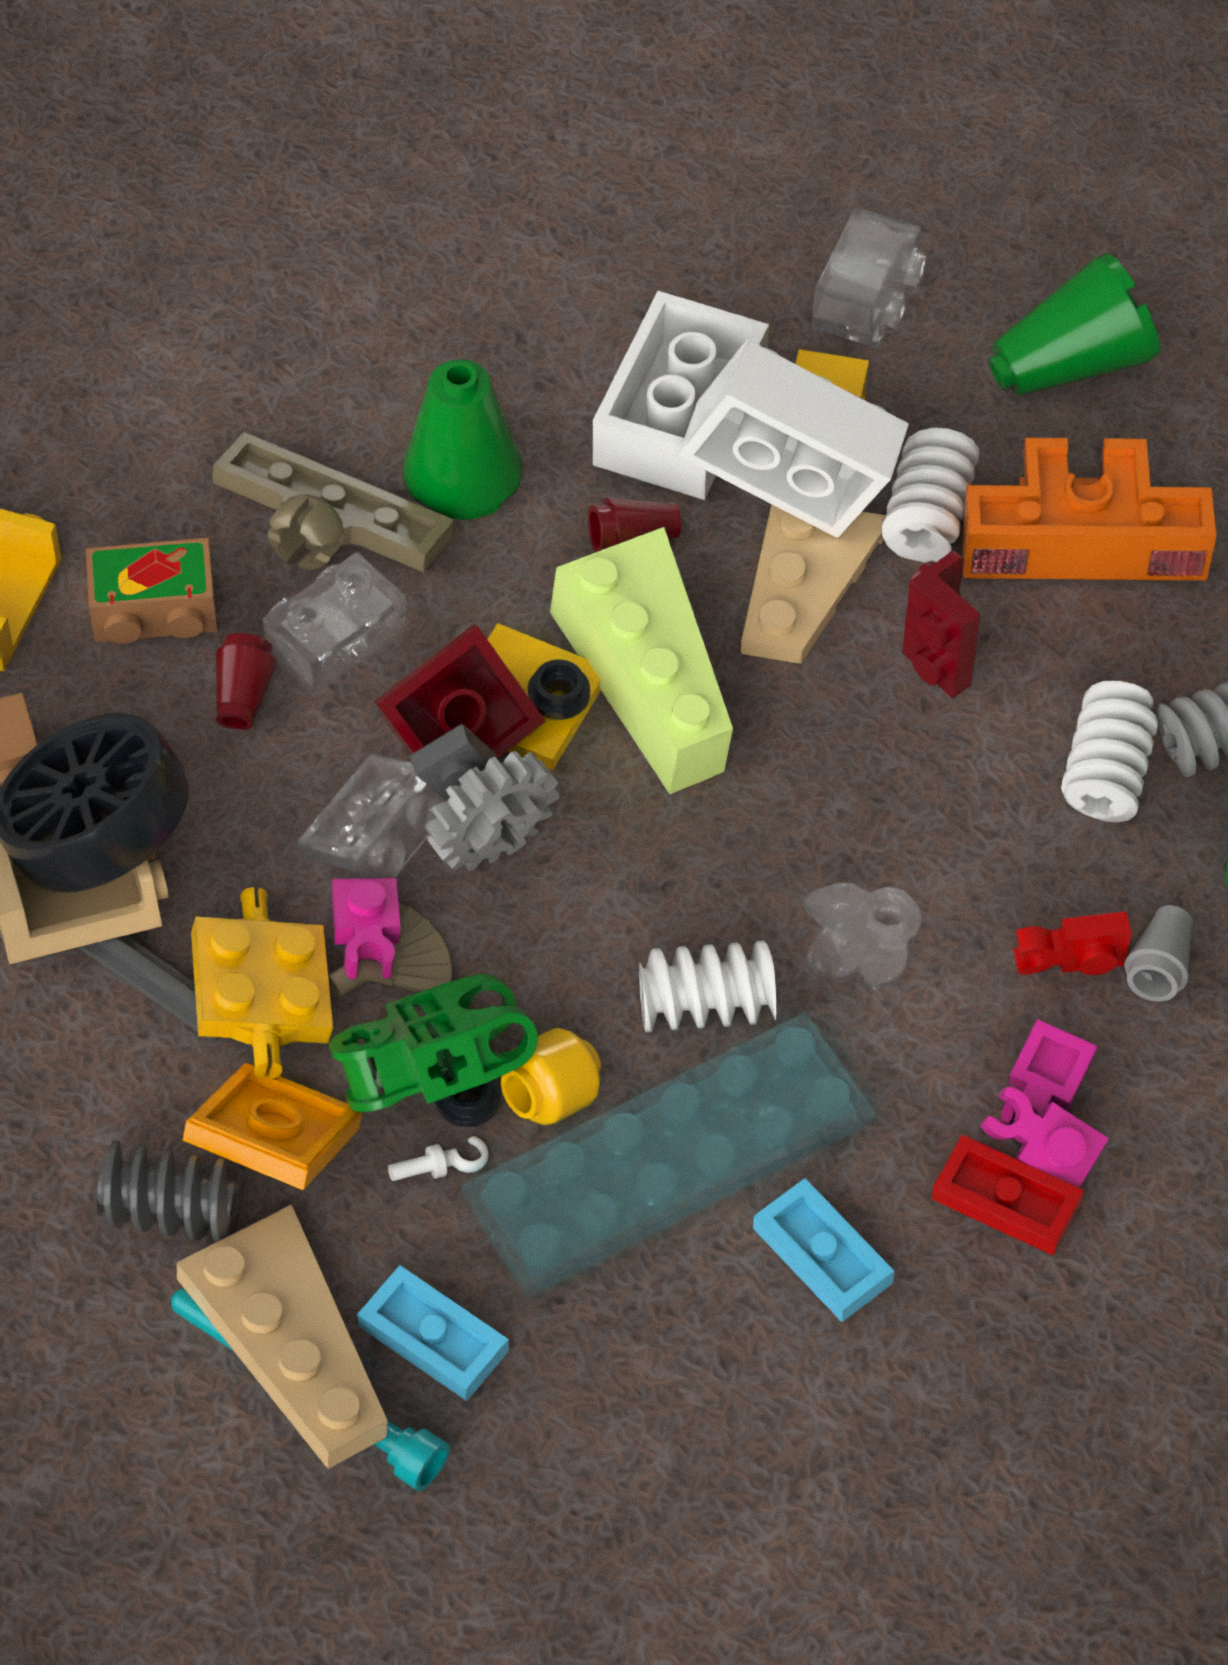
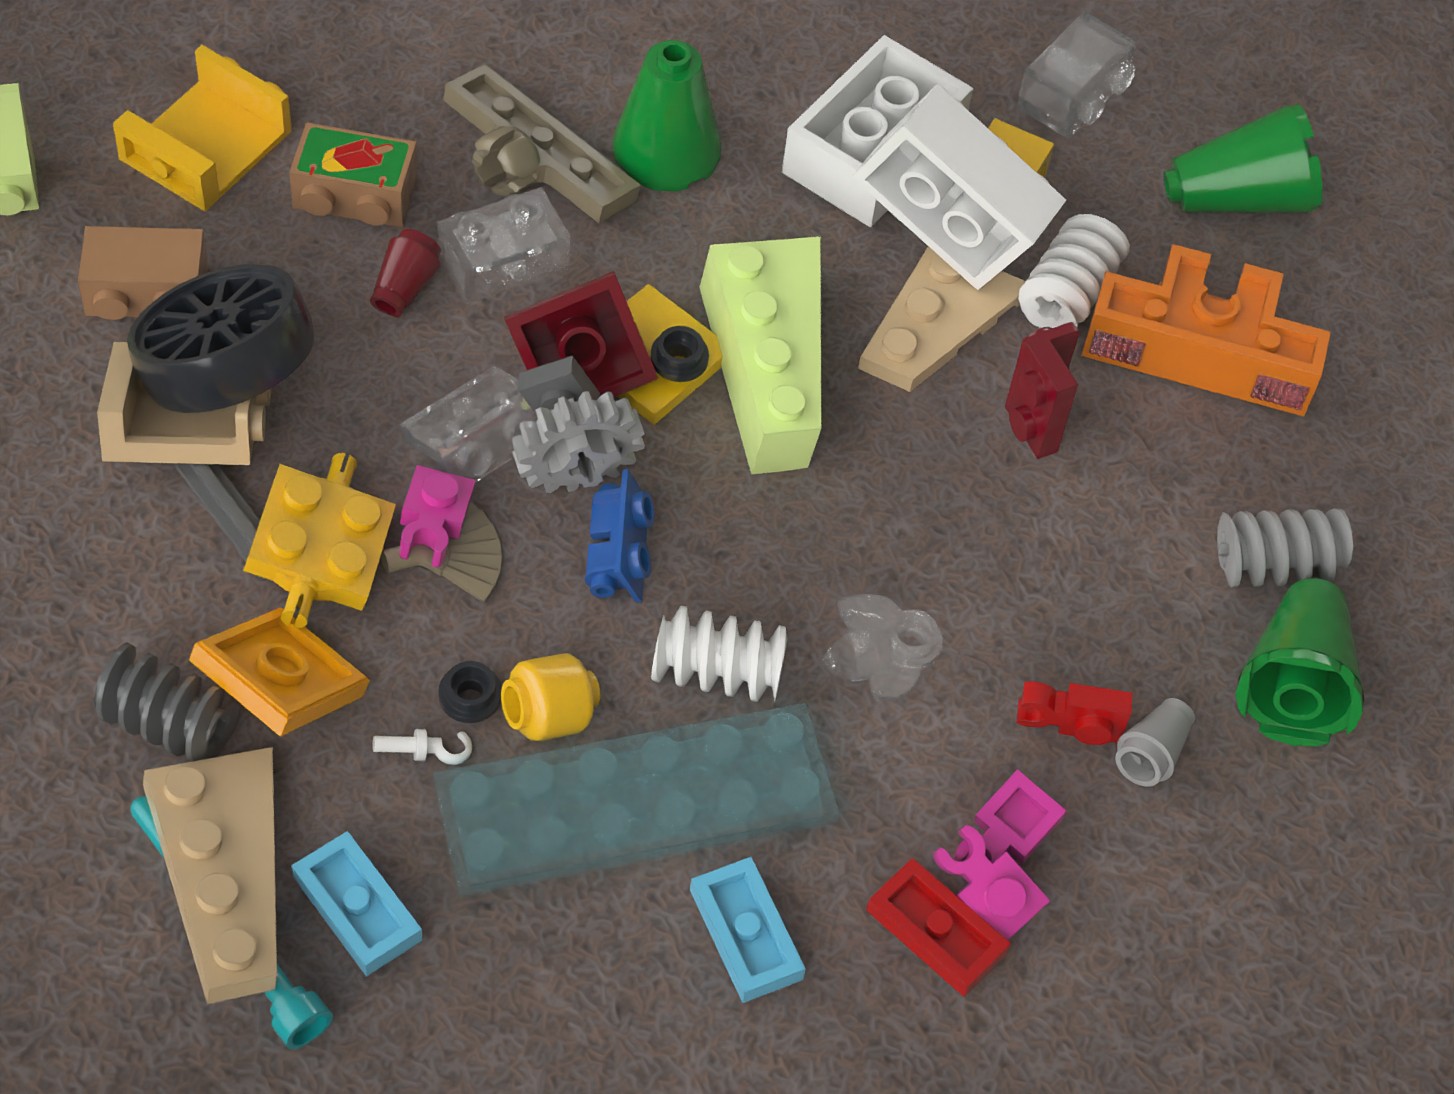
camera: 10 degrees right, 0 degrees up
(415, 1050) = (421, 638): green piece -> none
(574, 917) = (622, 516): none -> blue hinge
(626, 519) = (792, 222): dark red cone -> none
(1110, 751) = (1165, 543): white piece -> none

